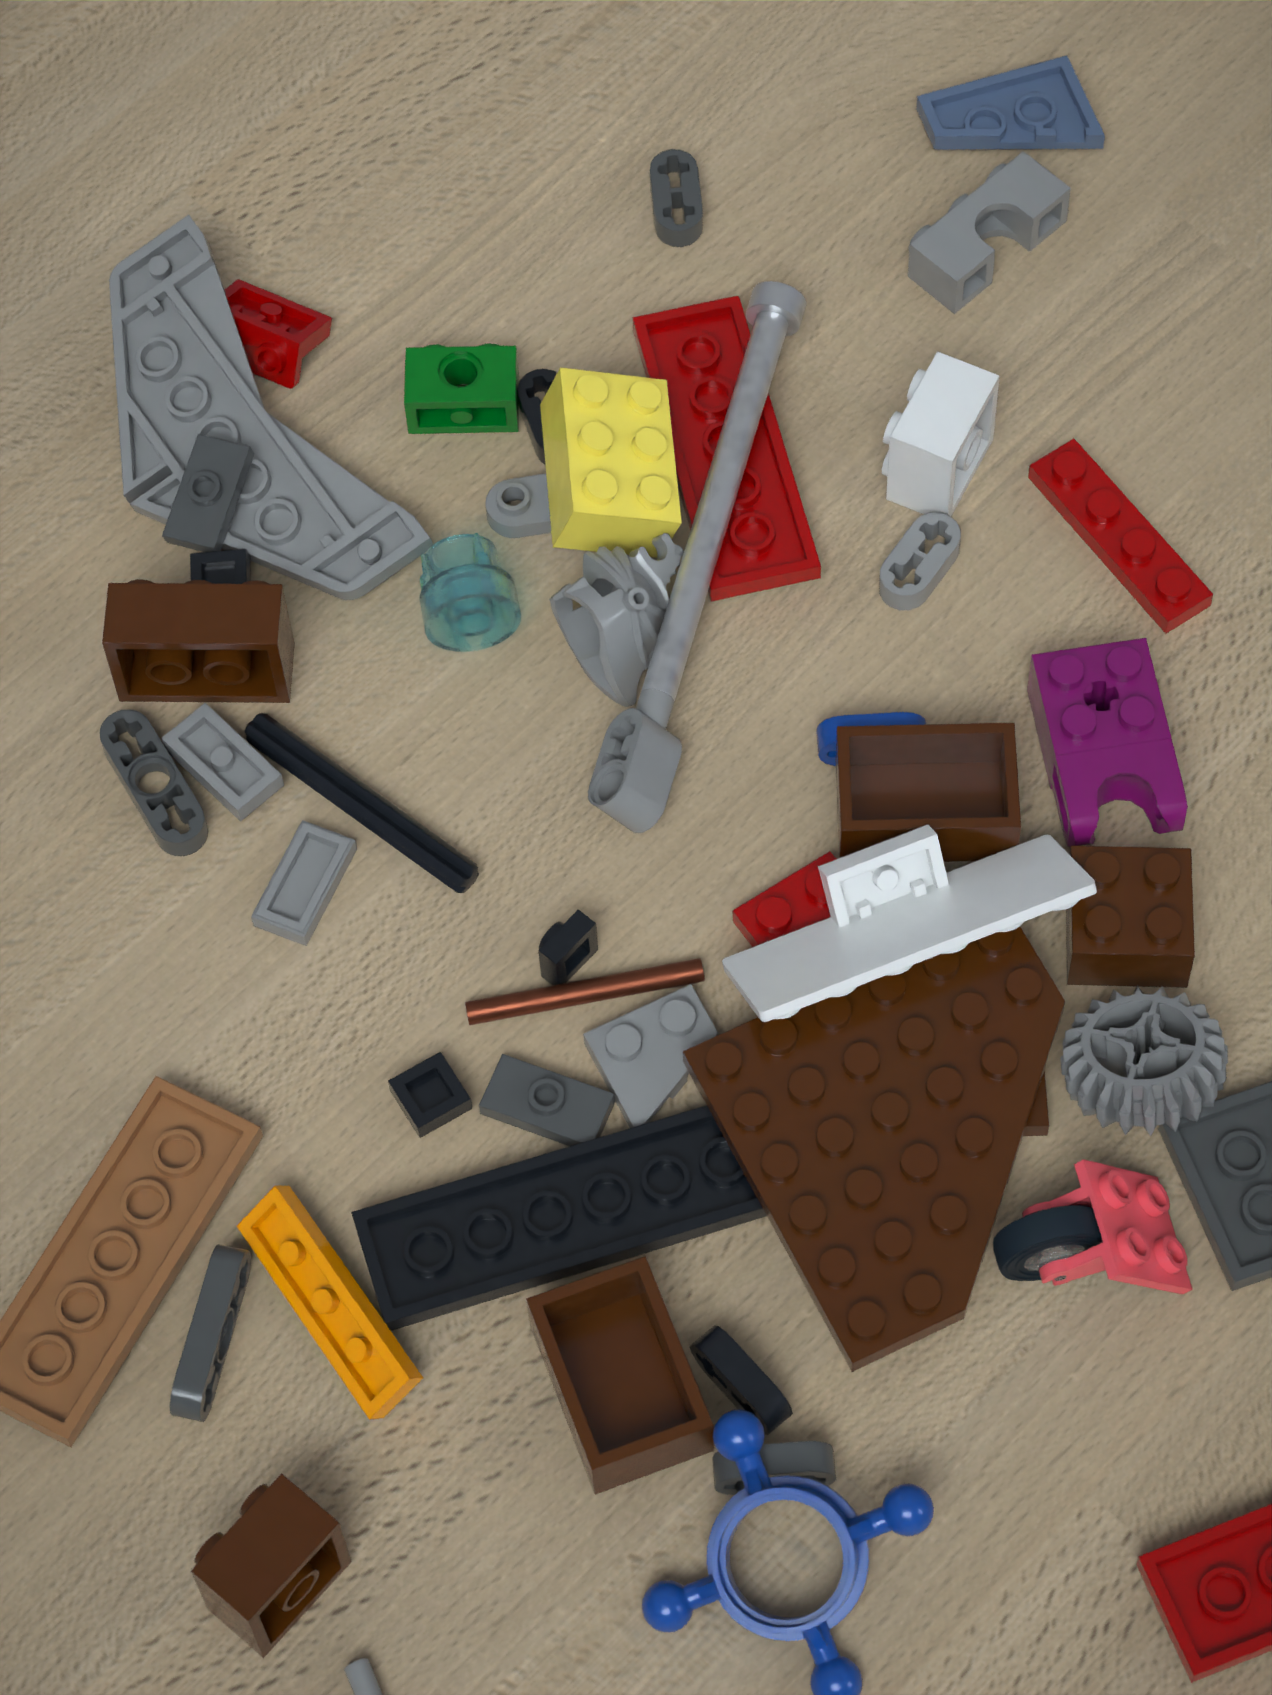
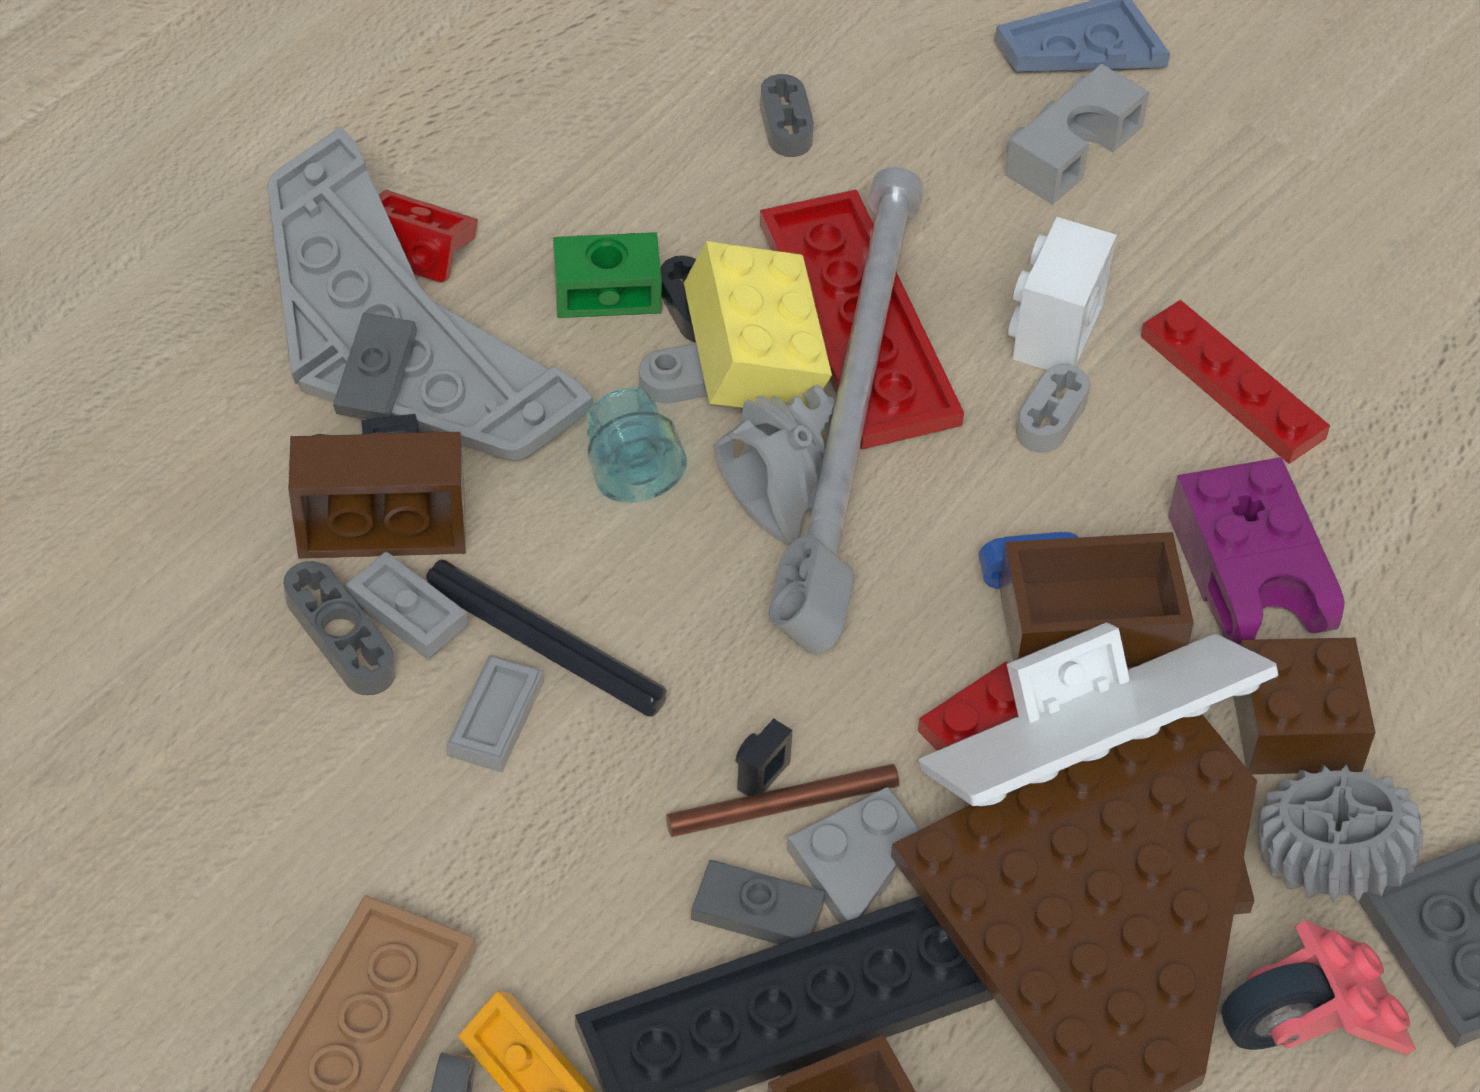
camera: 10 degrees left, 10 degrees down
(430, 1094) = (641, 901): black plate -> none

